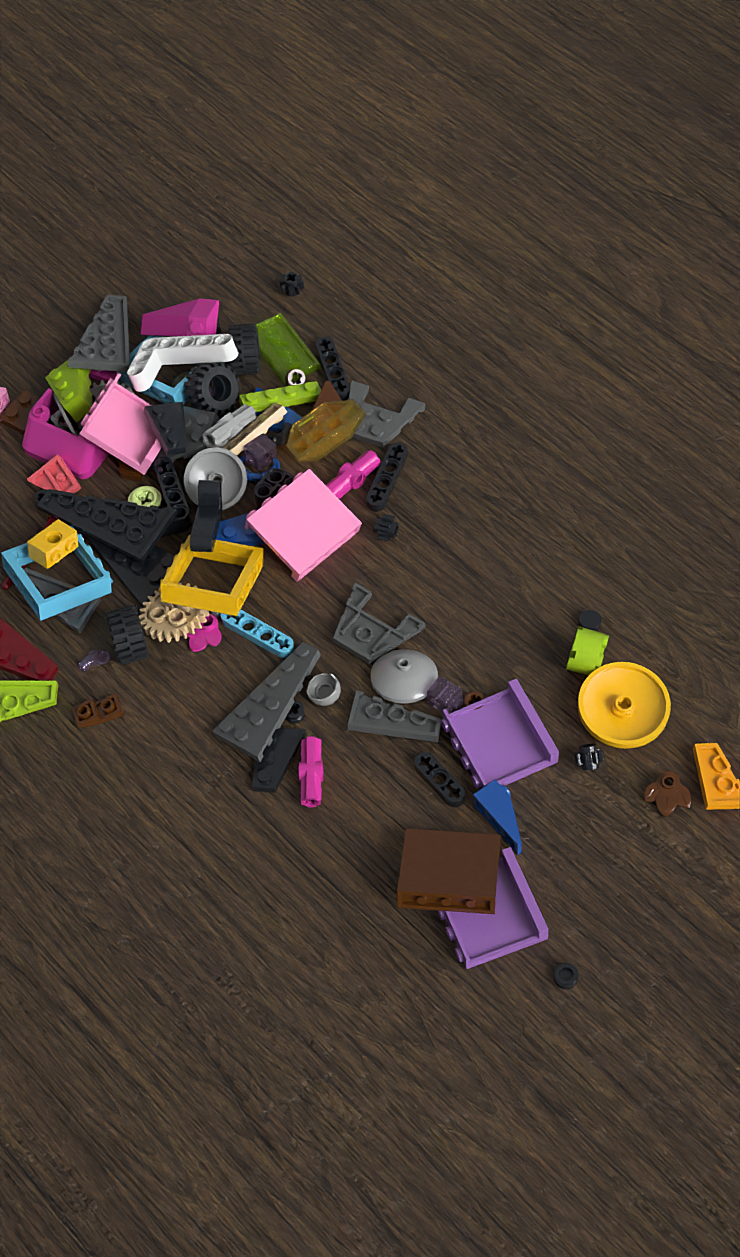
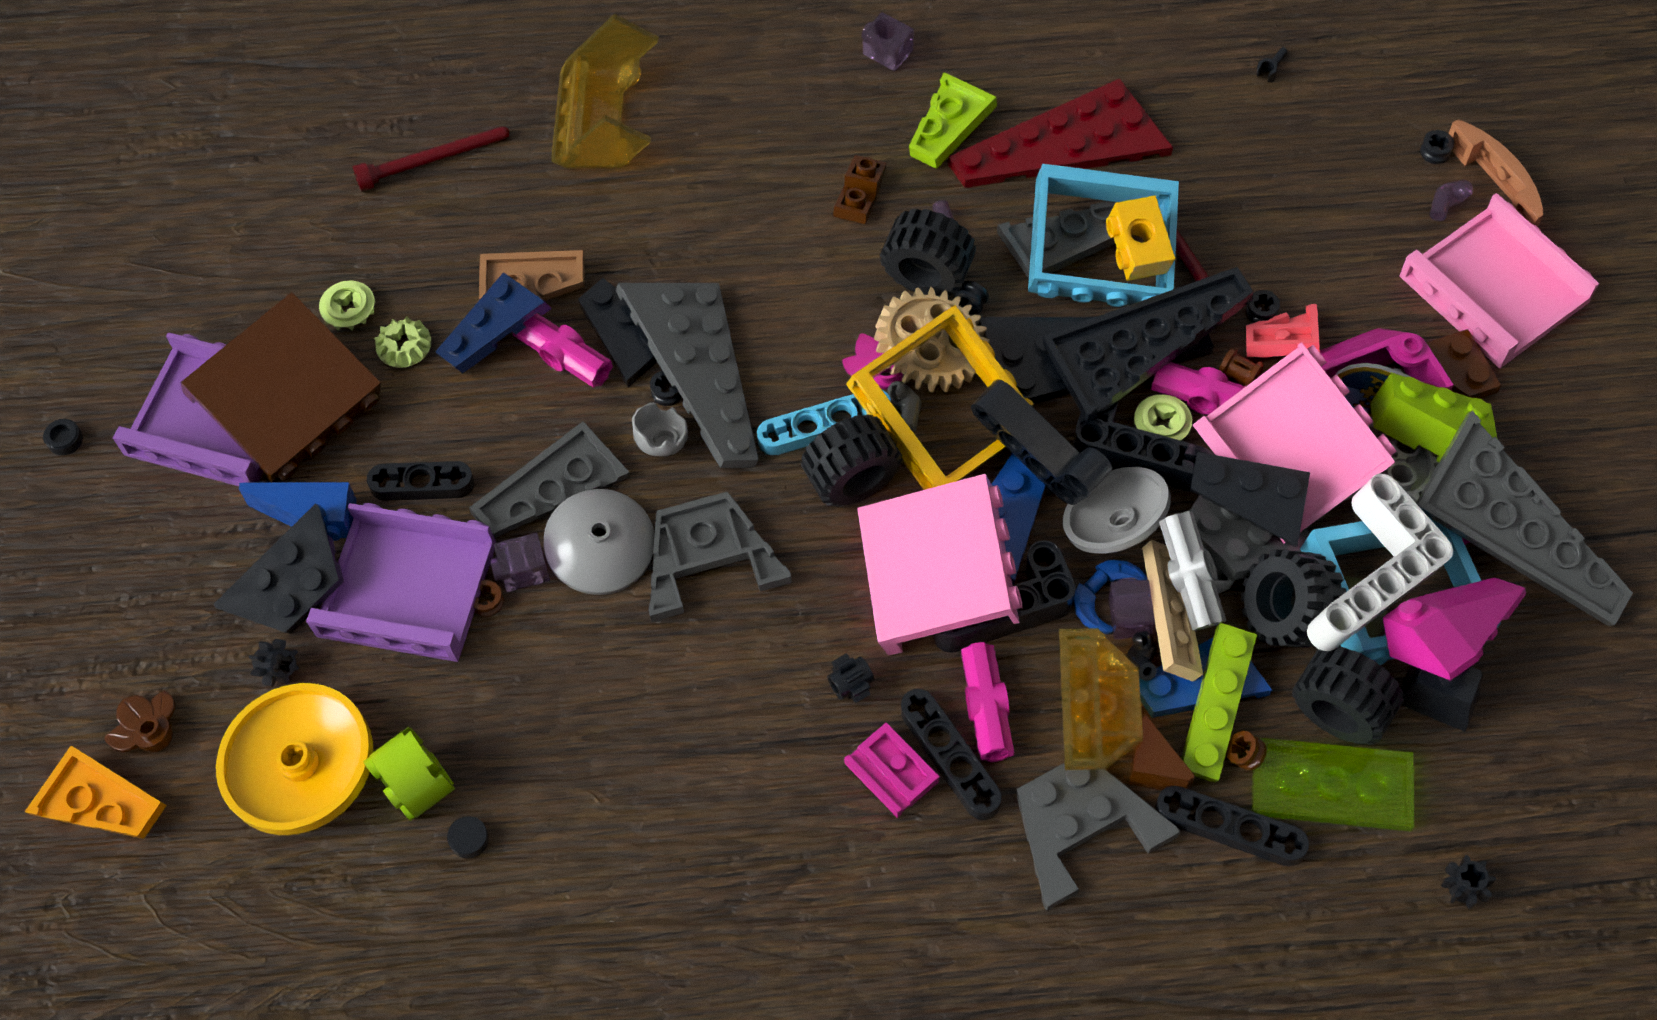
camera: 125 degrees right, 5 degrees up
(91, 485) = (1240, 368): none -> reddish brown bush
(113, 485) = (1202, 389): none -> dark pink piece
(148, 877) = (591, 98): none -> clear yellow windscreen
(277, 587) = (851, 460): none -> black tyre
(278, 960) = (369, 174): none -> dark red piece
(282, 824) = (542, 273): none -> medium nougat wing
(325, 808) = (494, 316): none -> dark blue wing
(366, 863) = (411, 351): none -> yellowish green gear
(373, 890) = (342, 294): none -> yellowish green gear
(414, 489) = (892, 770): none -> dark pink plate
(544, 786) = (288, 578): none -> black wing

